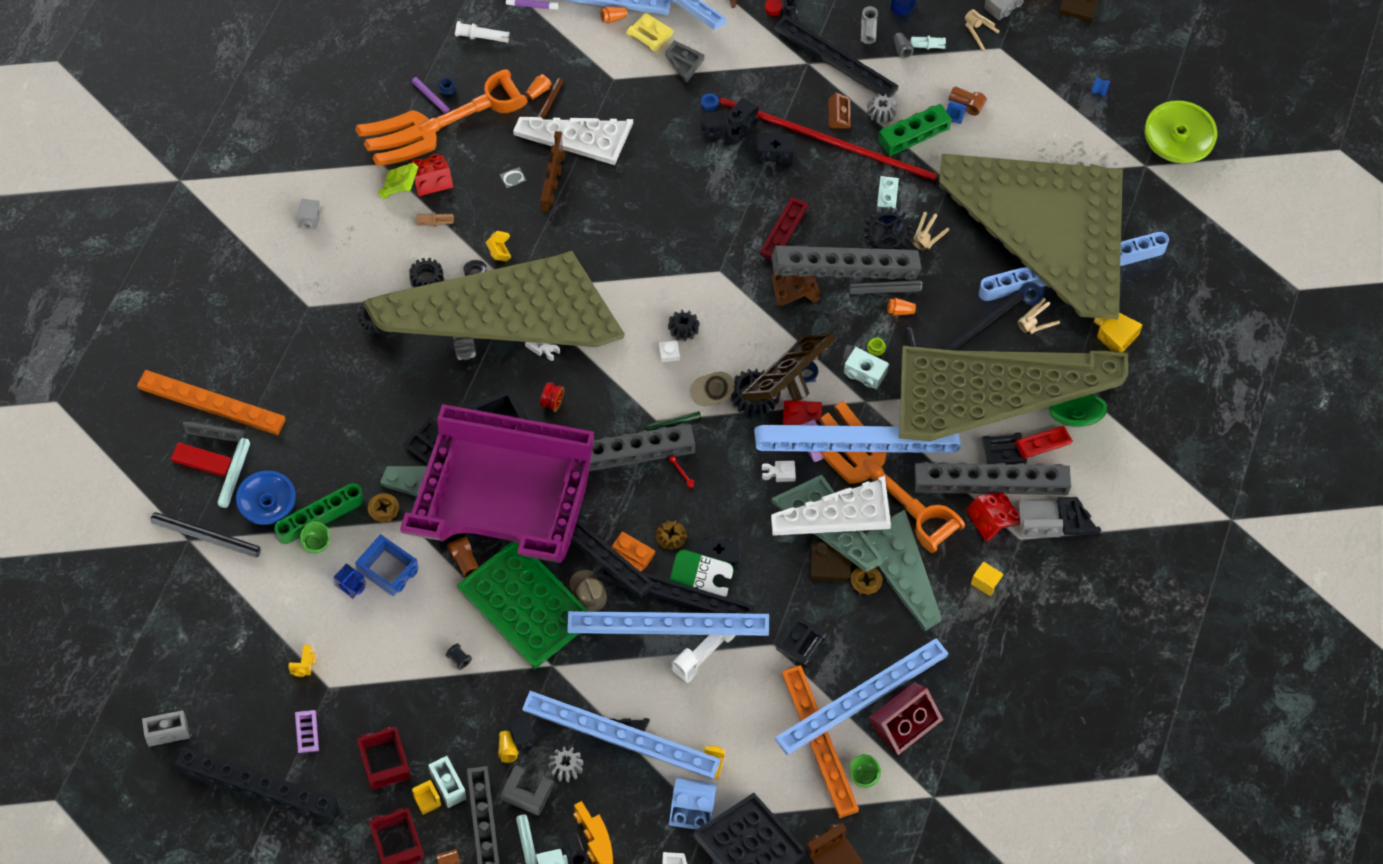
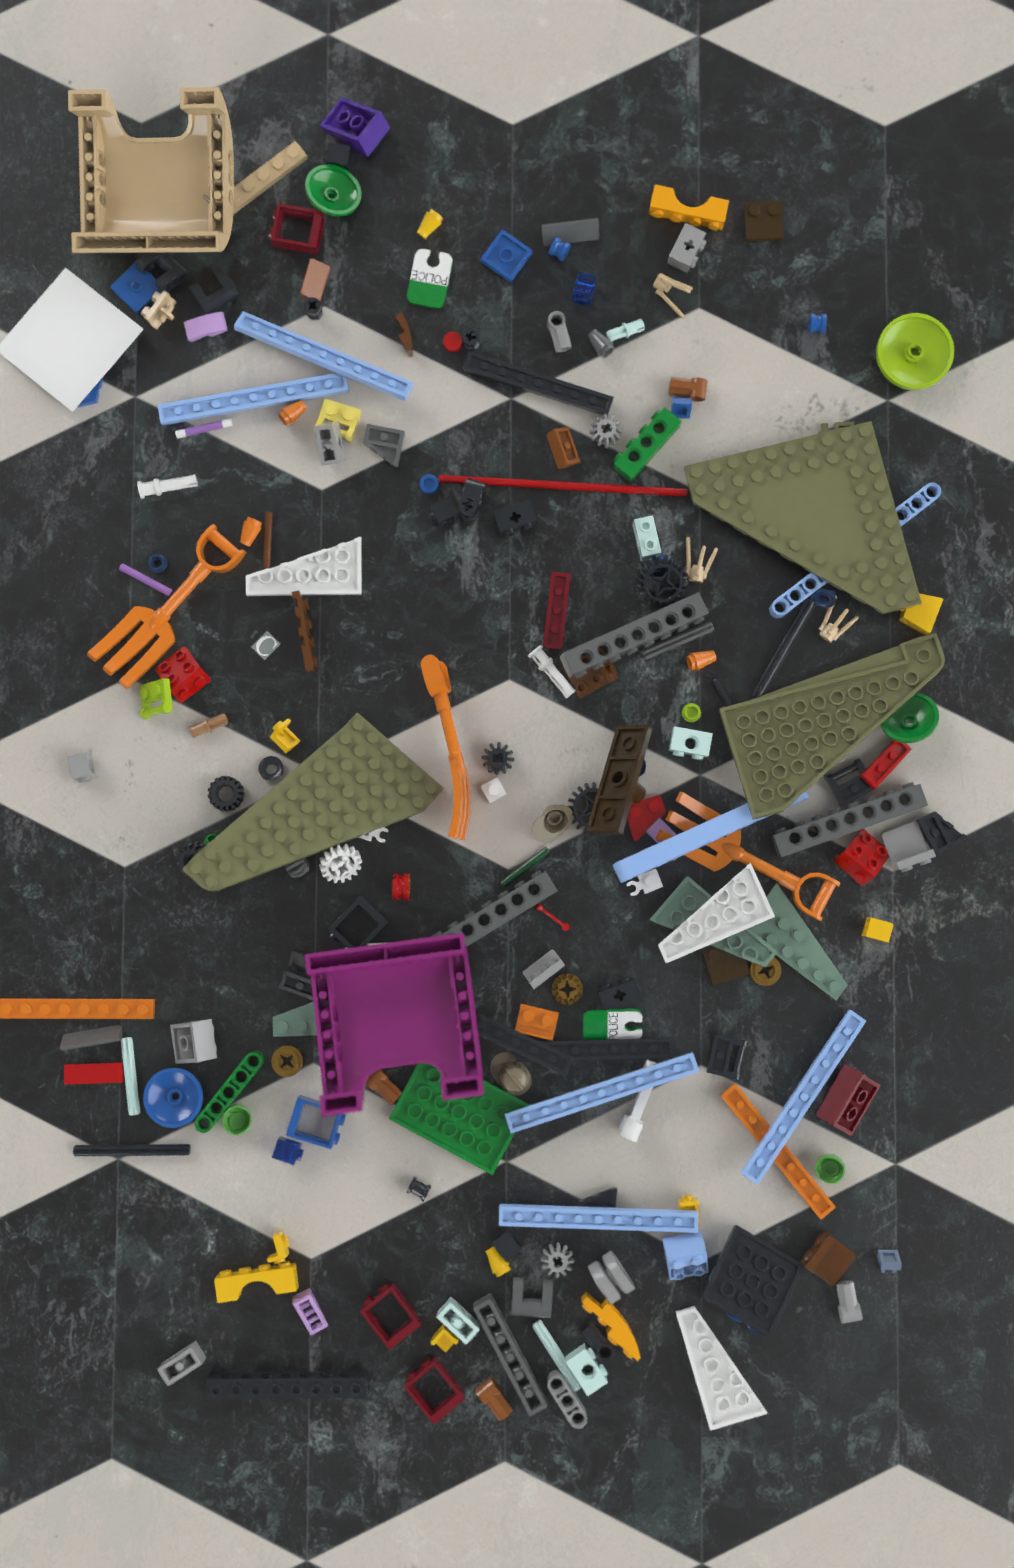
camera: 15 degrees left, 25 degrees up
(244, 679) = (281, 1278): none -> yellow arch
(306, 460) = (193, 1041): none -> light grey slope
(498, 353) = (340, 863): none -> white gear
(612, 791) = (609, 1278): none -> light grey wheel
(635, 342) = (439, 686): none -> orange piece
(636, 41) = (329, 443): none -> light grey brick
(656, 509) = (543, 968): none -> light grey bracket
(757, 267) = (546, 664): none -> white pin

